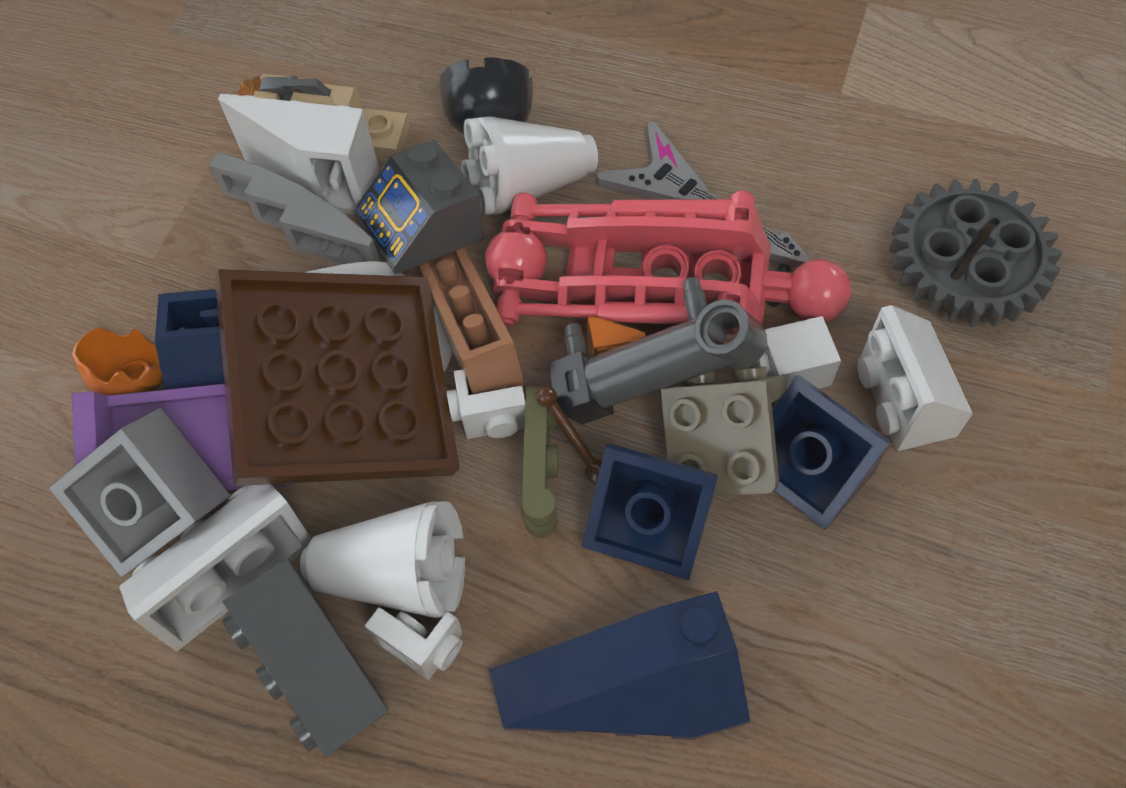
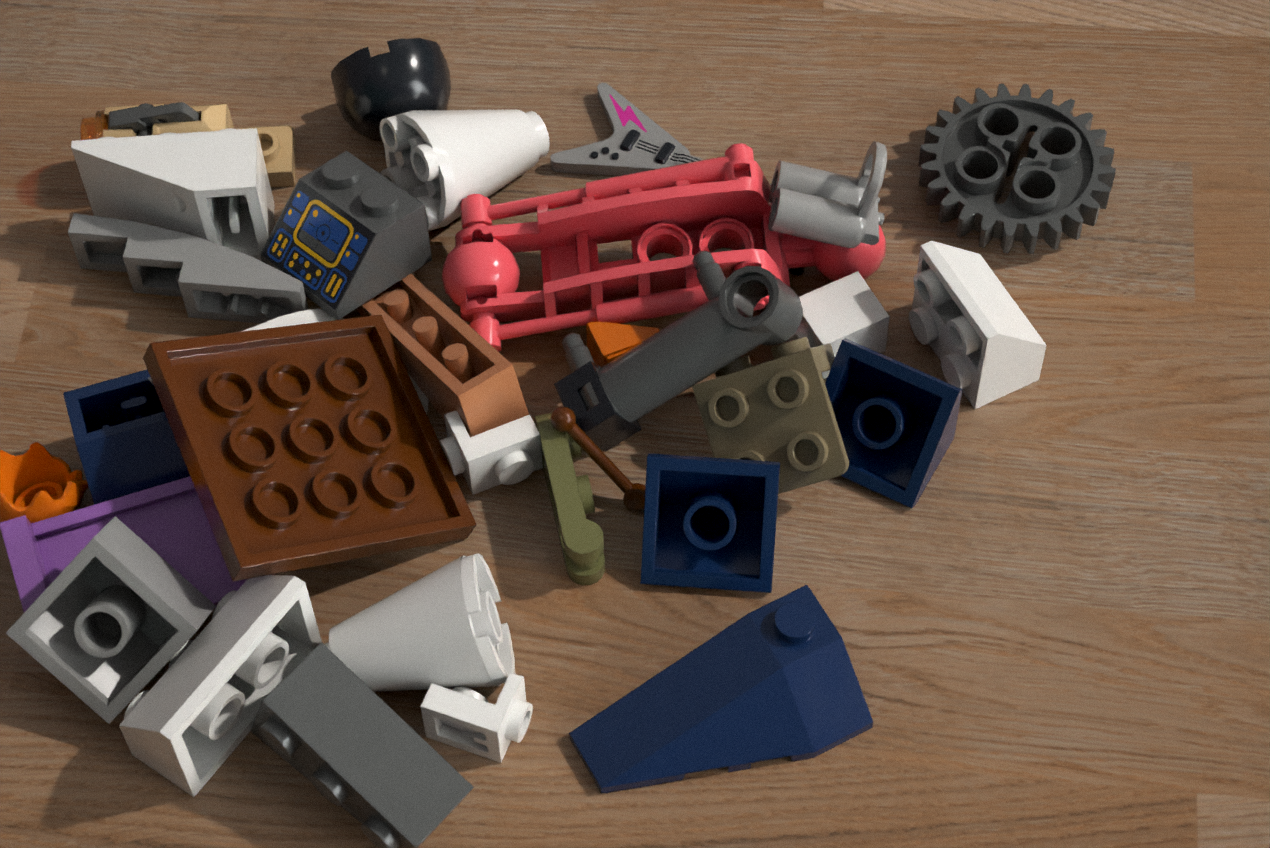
camera: 15 degrees left, 5 degrees down
(809, 255) = (829, 204): none -> light grey piece

